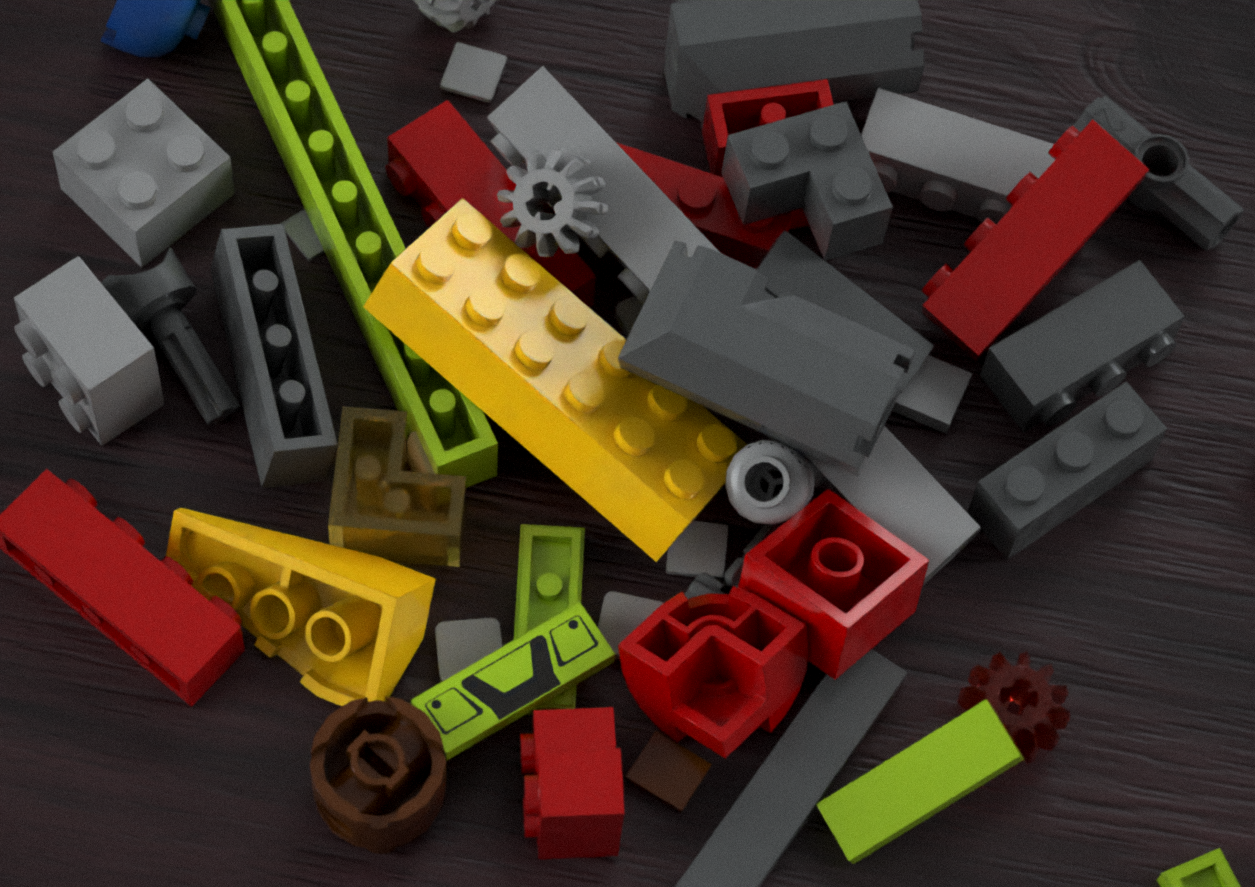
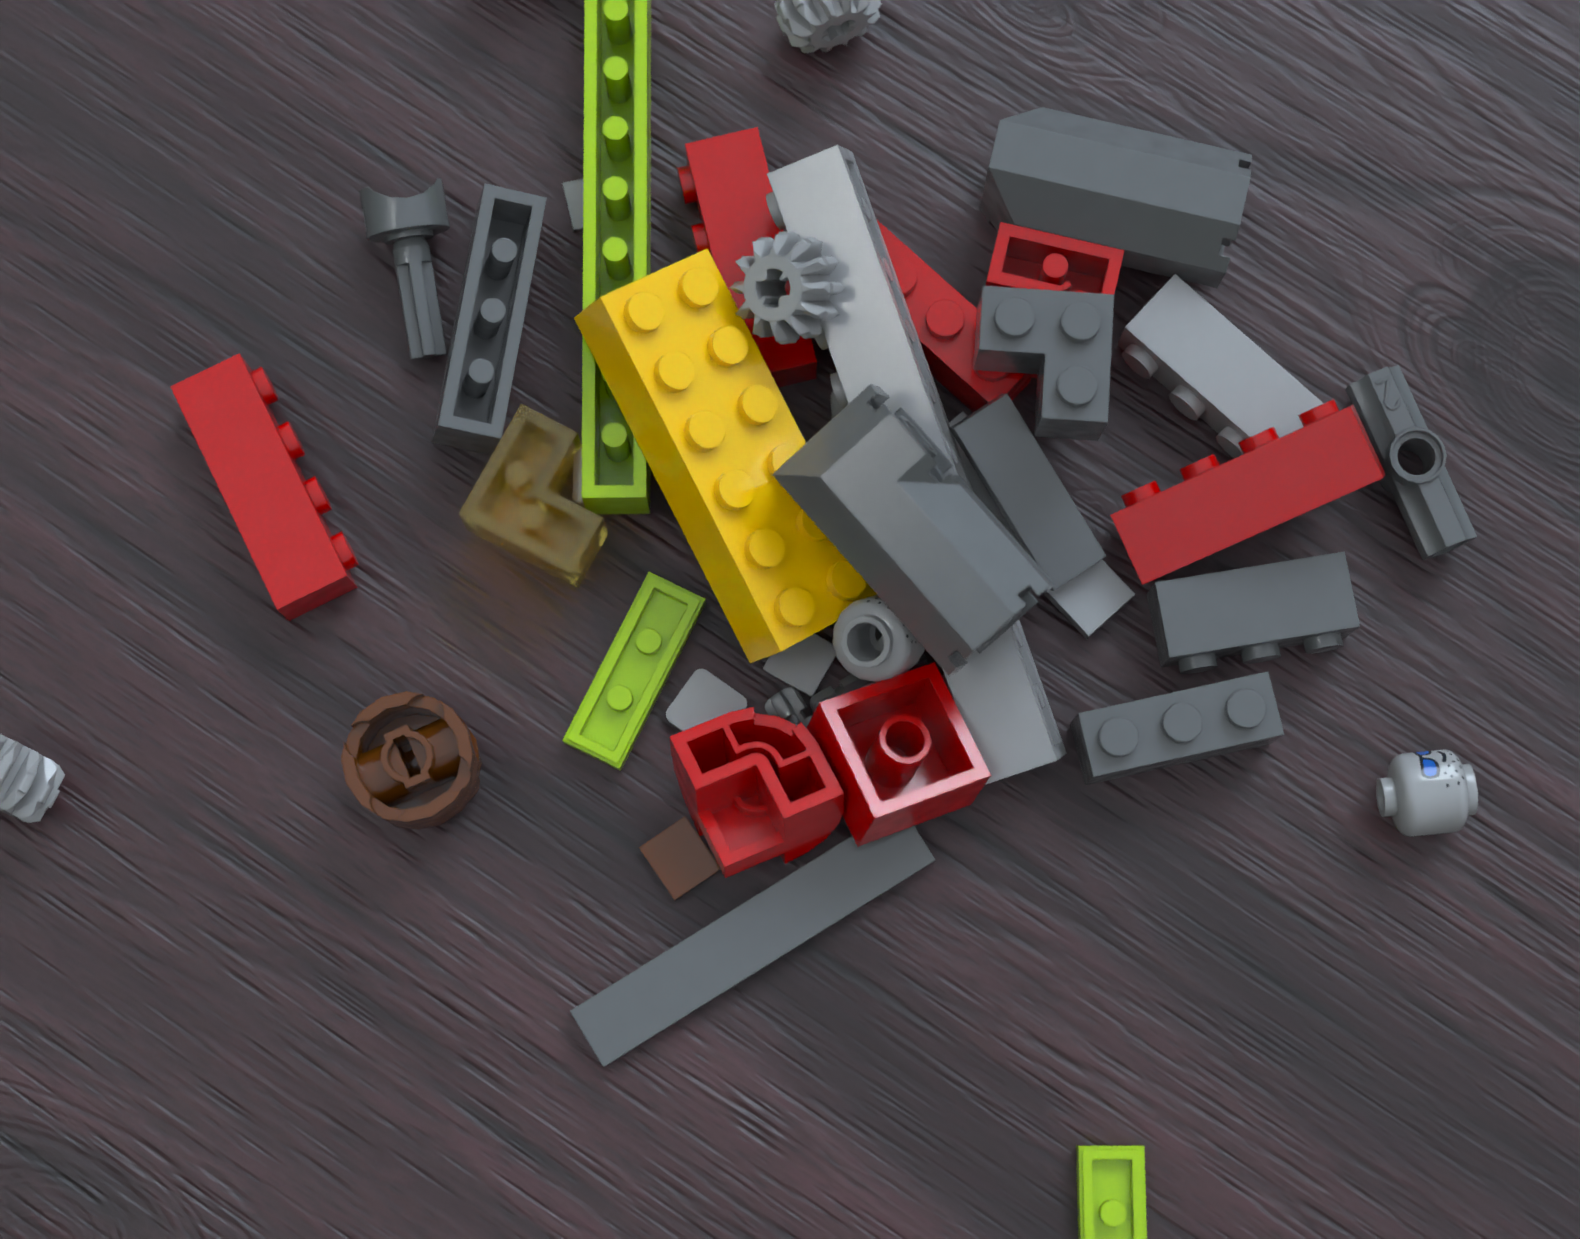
camera: 30 degrees right, 15 degrees up
(88, 352) = (319, 253): light grey brick -> none
(144, 172) = (452, 88): light grey brick -> none
(320, 607) = (441, 582): yellow wedge -> none
(464, 643) = (552, 672): light grey piece -> none
(473, 72) = (806, 99): light grey piece -> none
(515, 679) = (571, 722): lime tile -> none
(576, 785) = (584, 840): red brick -> none
(919, 781) = (894, 972): lime tile -> none
(1038, 701) = (1021, 957): clear red gear -> none

